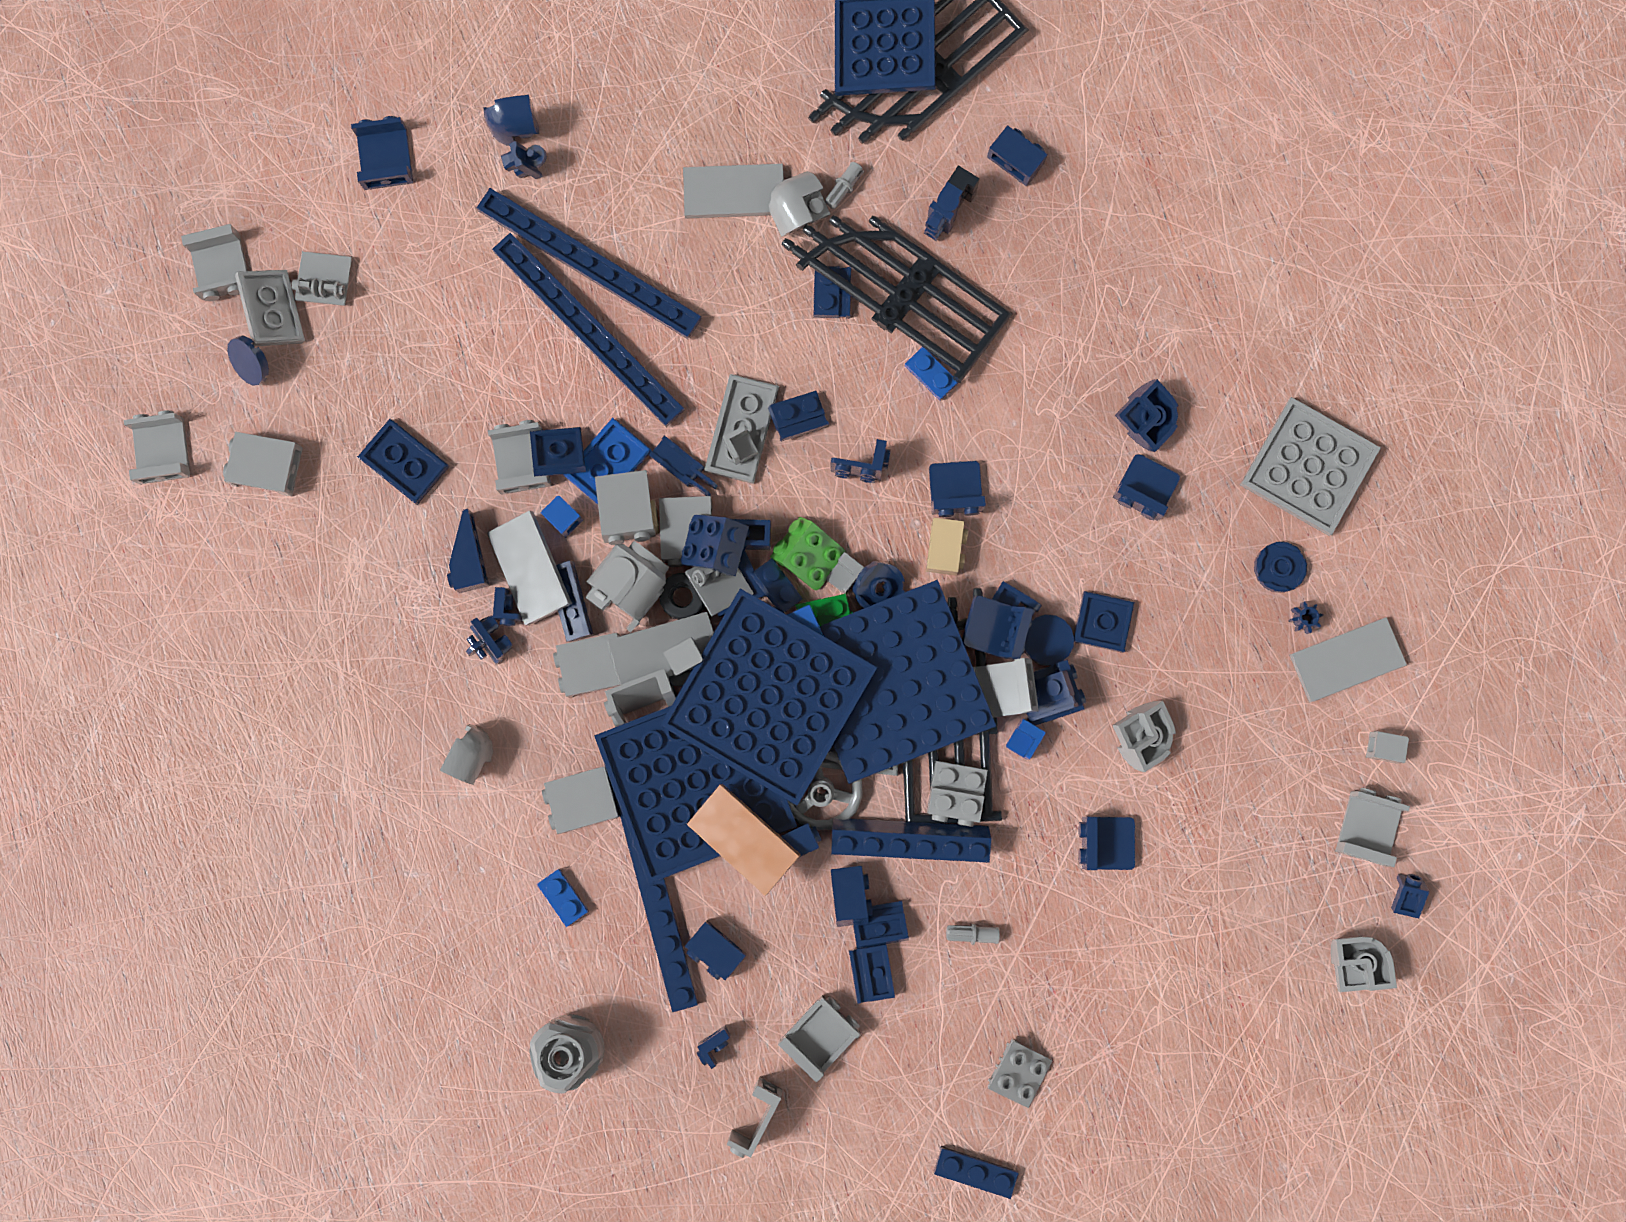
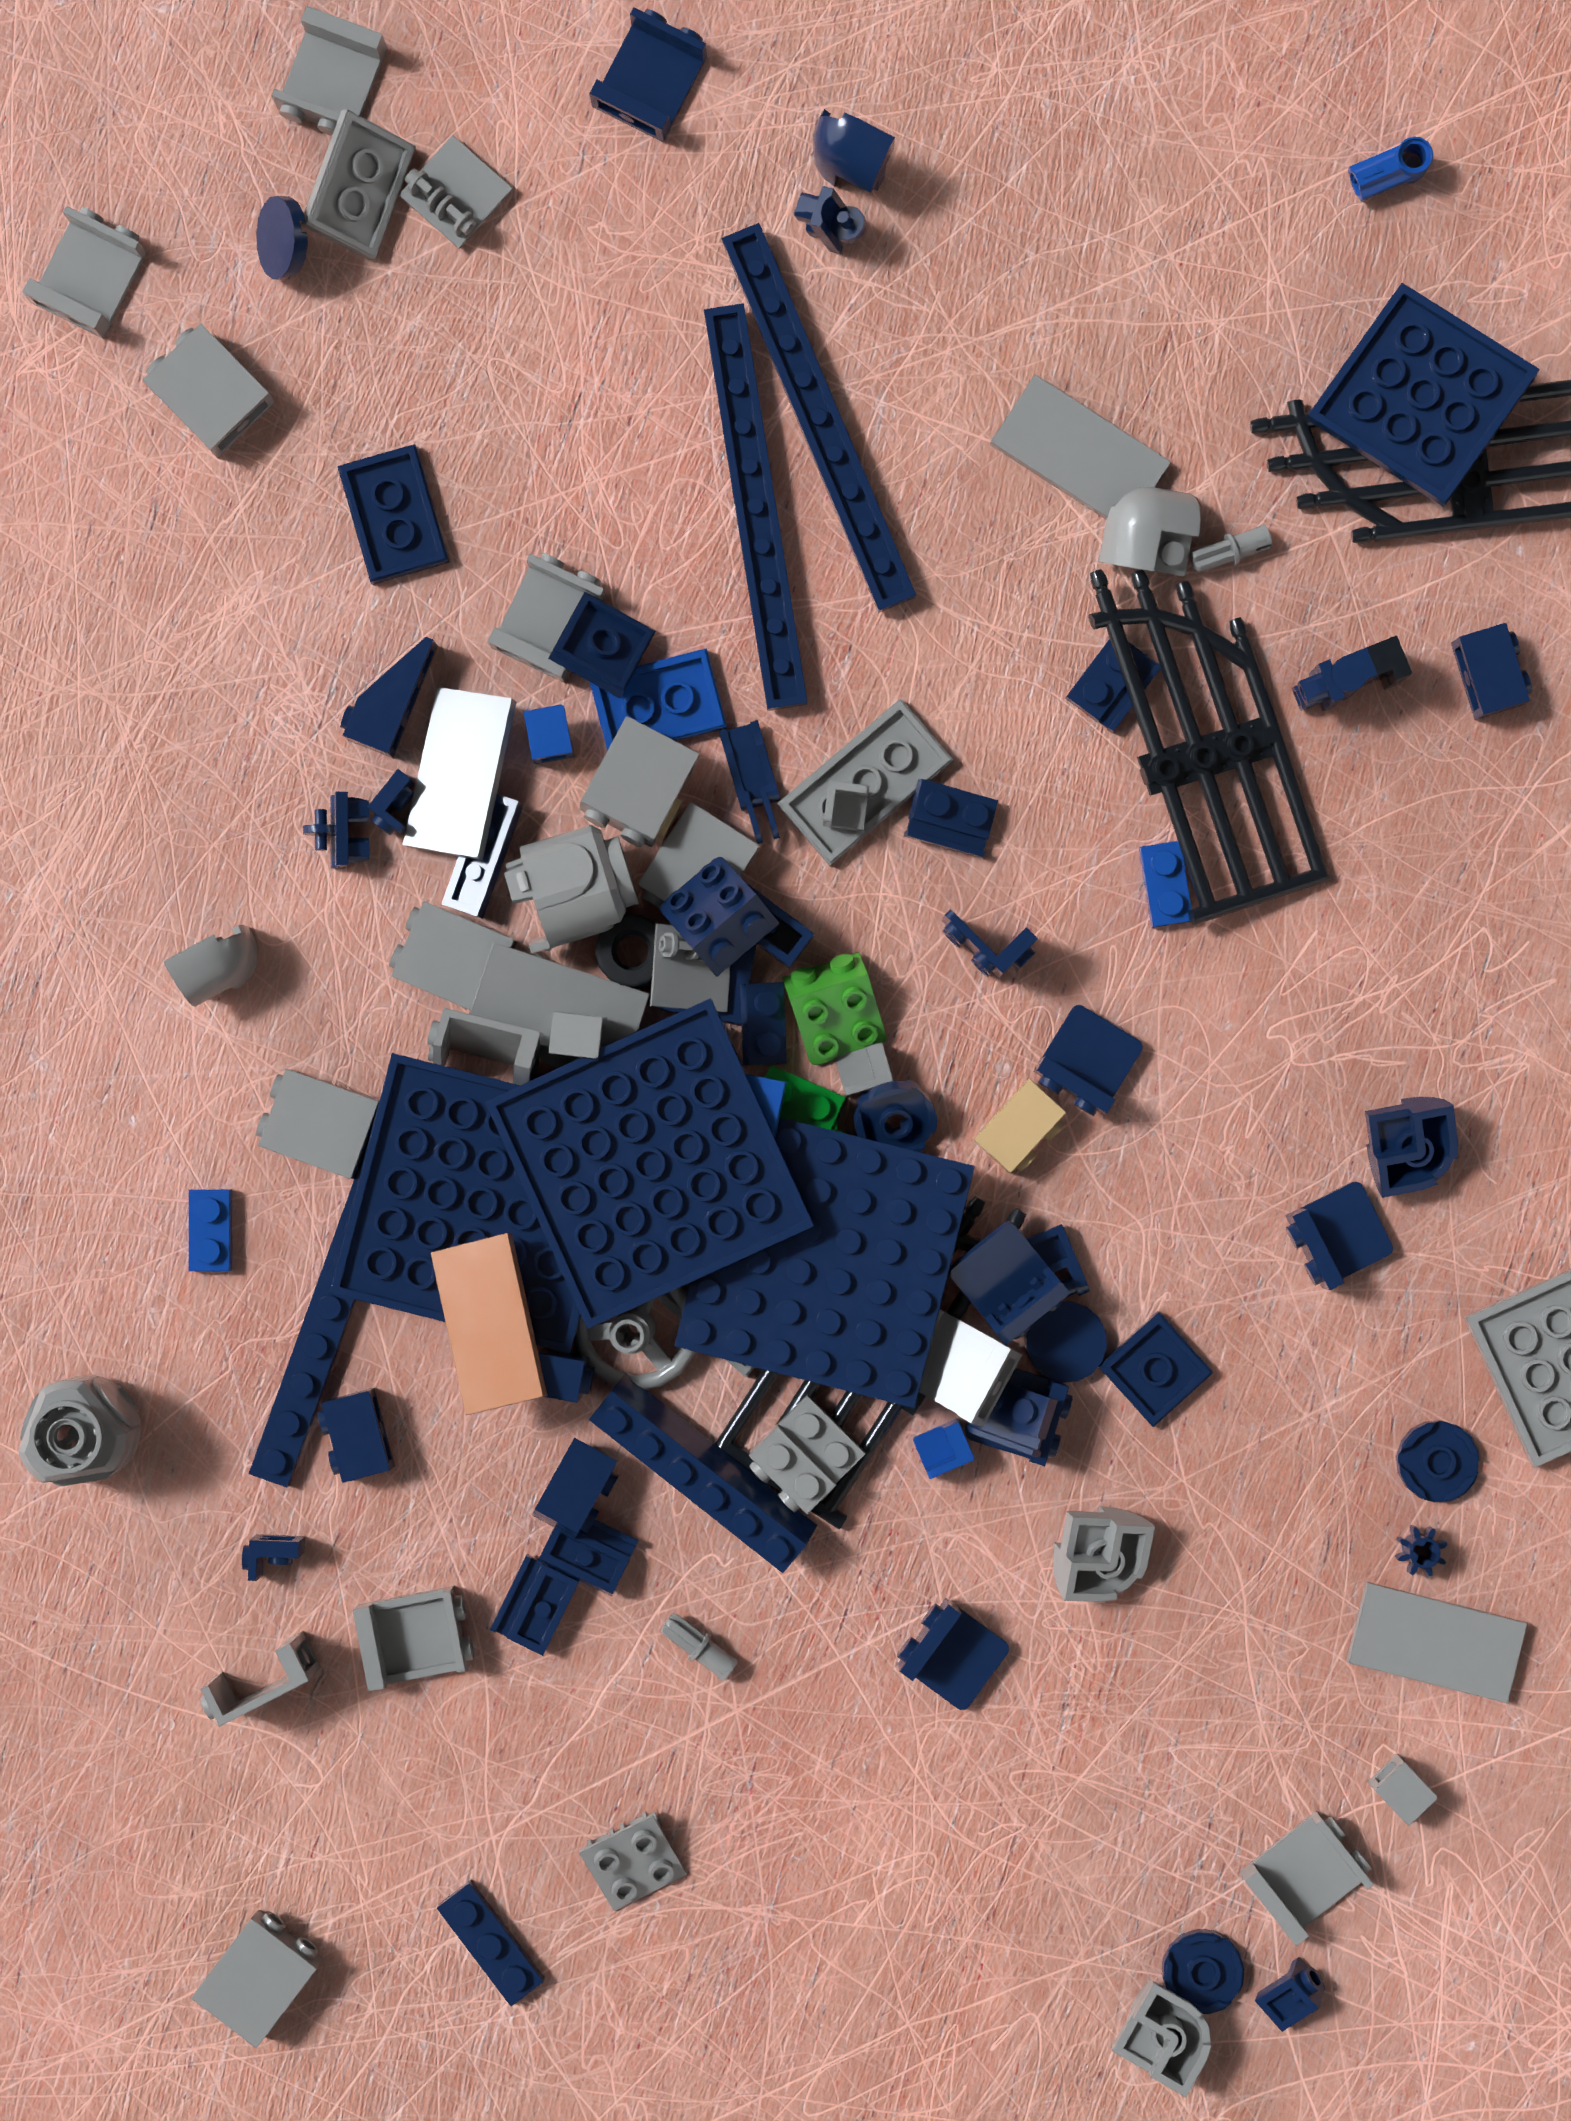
camera: 35 degrees right, 5 degrees up
(1355, 915) = (1203, 1969): none -> dark blue tile

